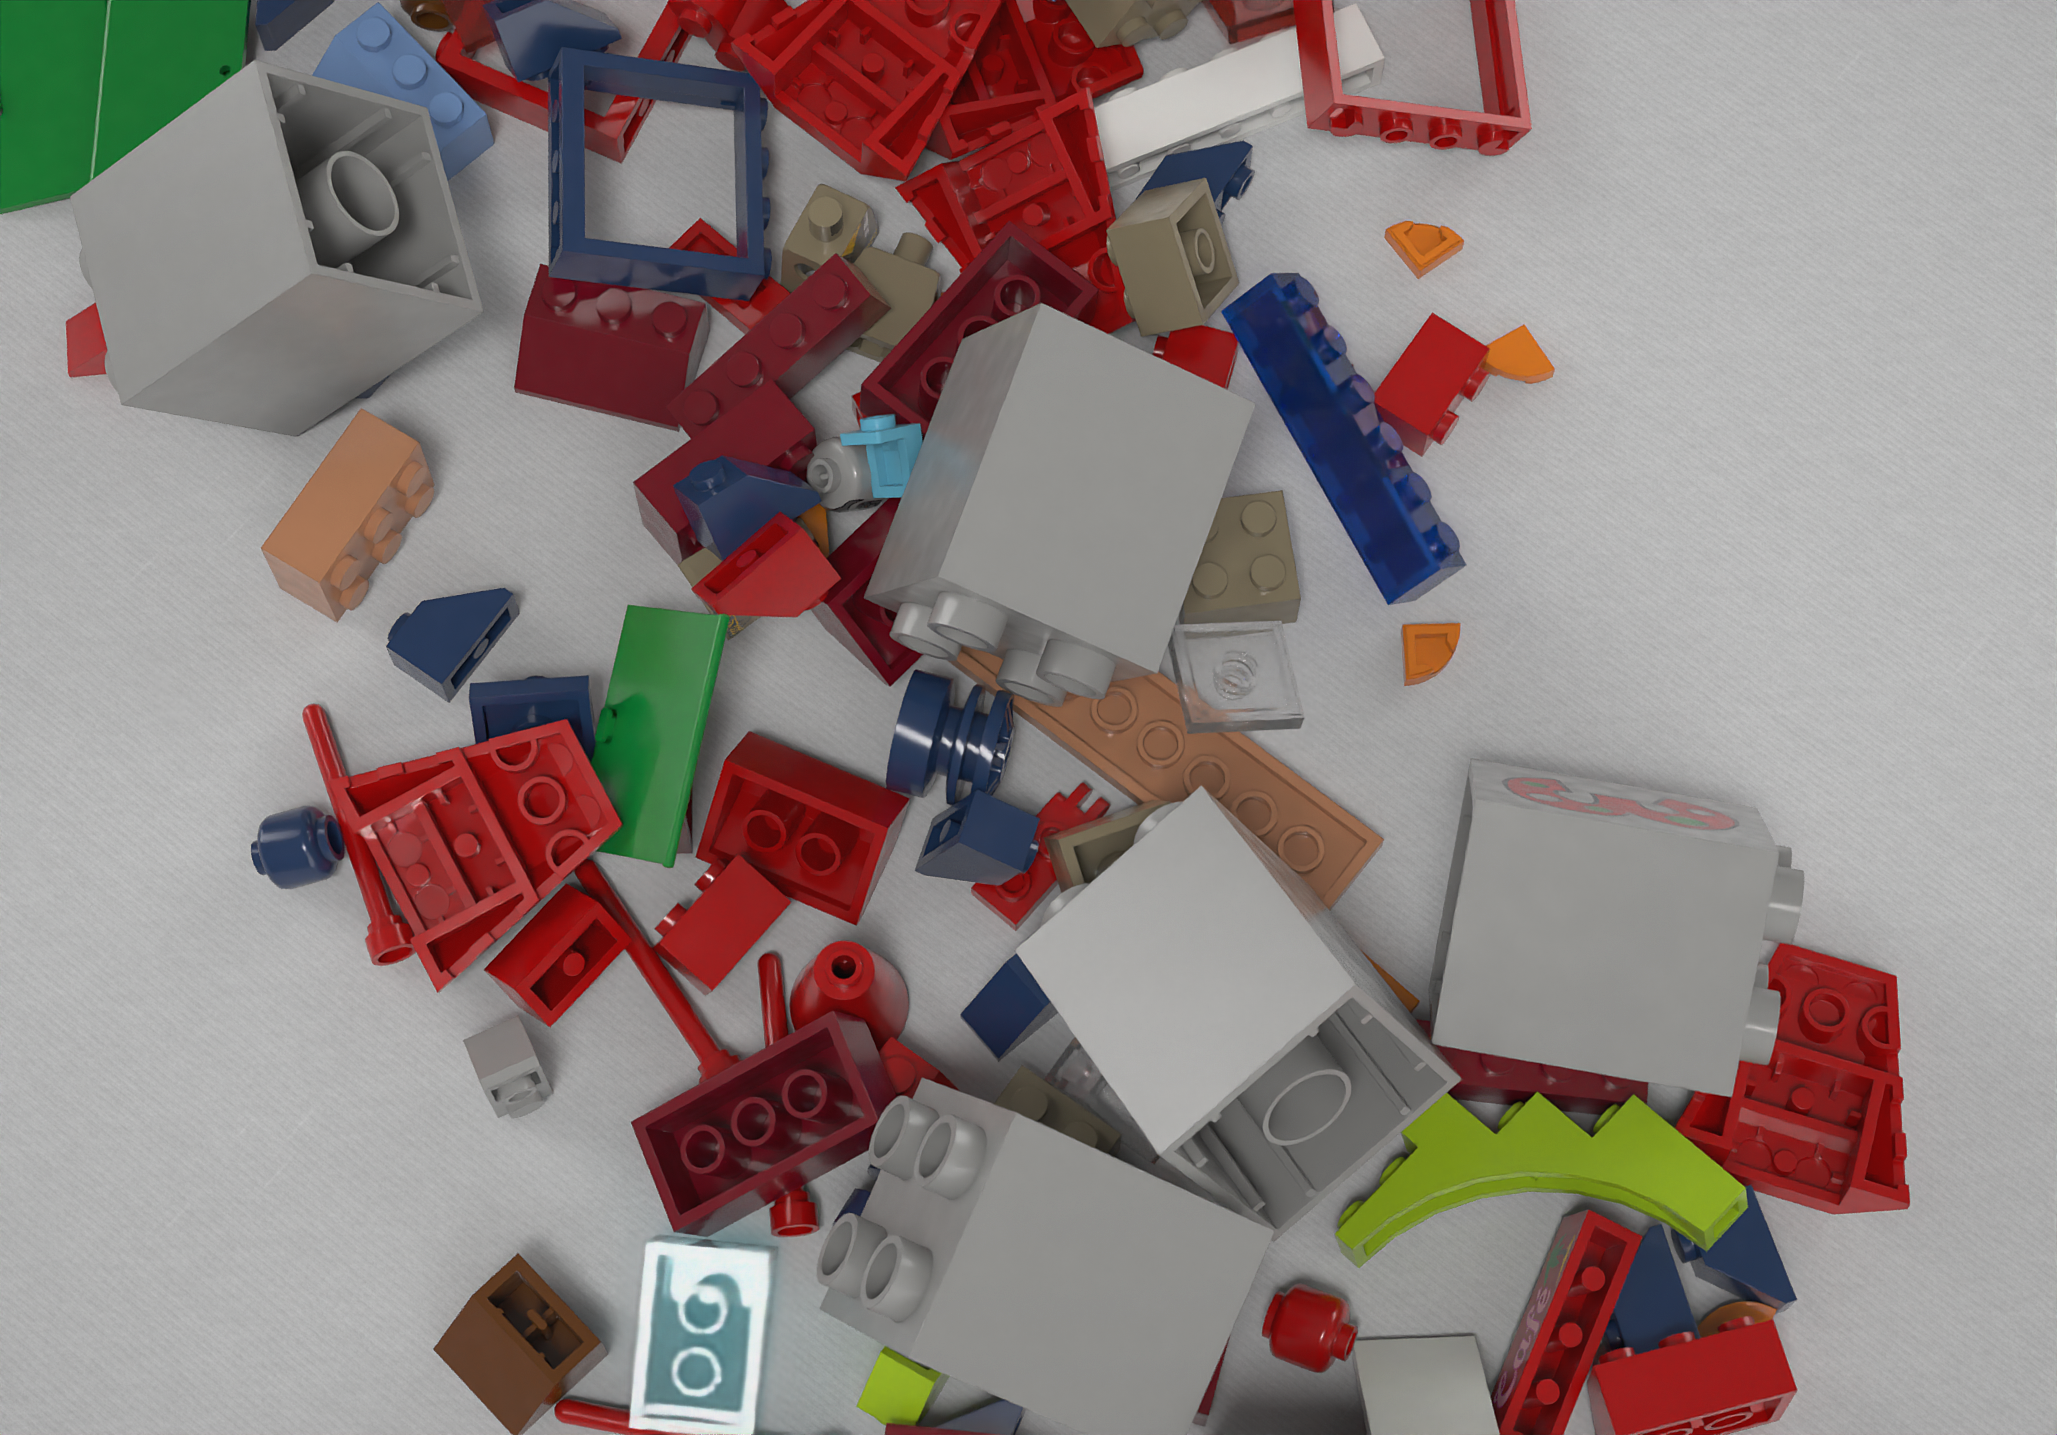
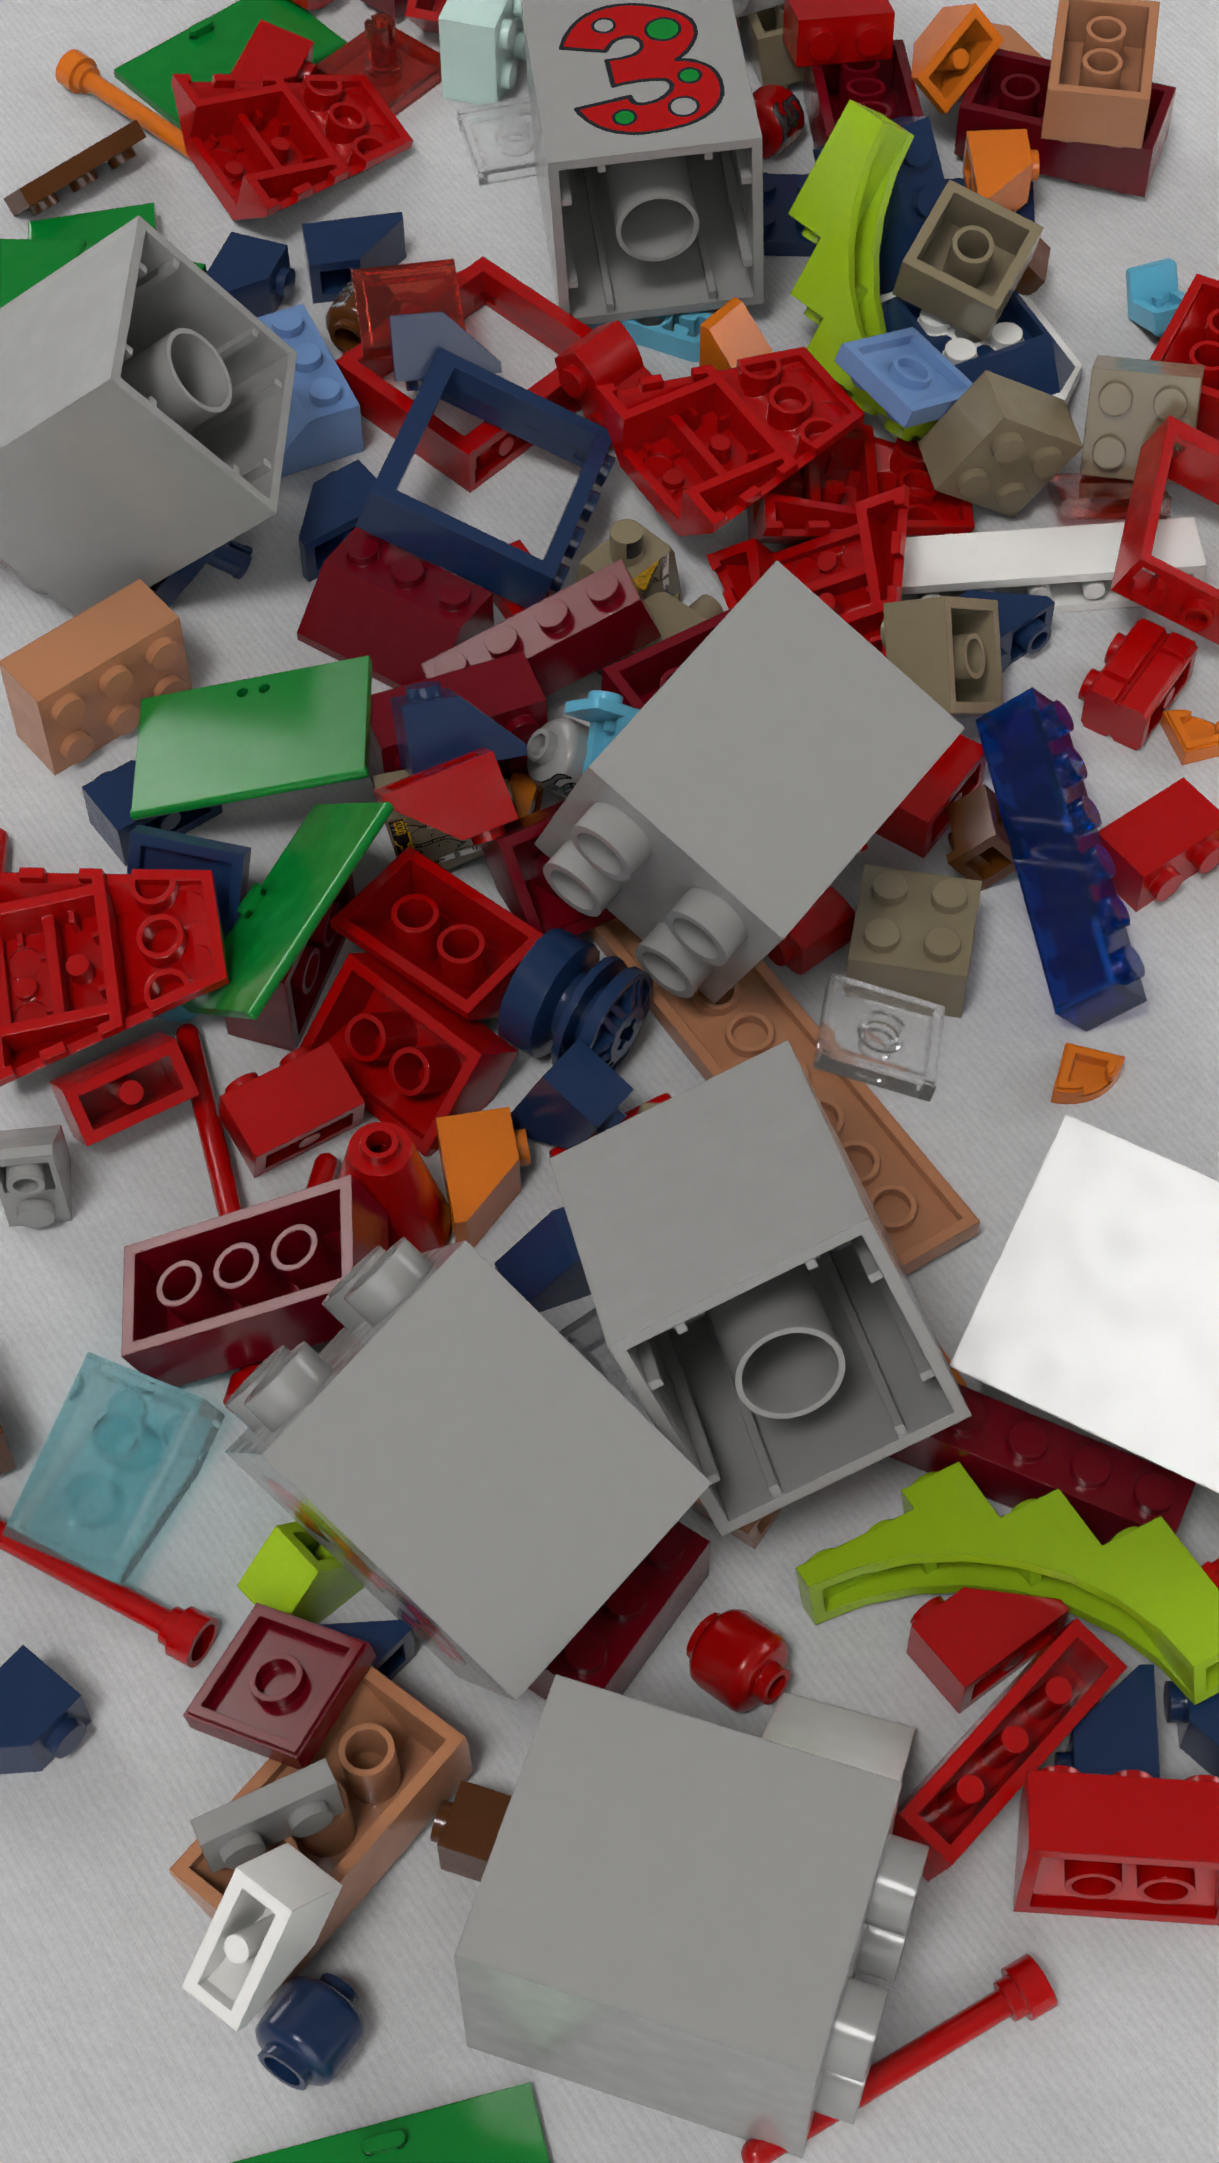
camera: 20 degrees right, 15 degrees down
(510, 243) = (332, 514): none -> dark blue slope
(548, 559) = (253, 738): none -> green container
(801, 706) = (438, 934): none -> red slope
(916, 929) = (480, 1168): none -> orange slope
(1267, 440) = (979, 838): none -> reddish brown brick
(1354, 206) = (1137, 683): none -> red brick
(1504, 1241) = (980, 1639): none -> red slope

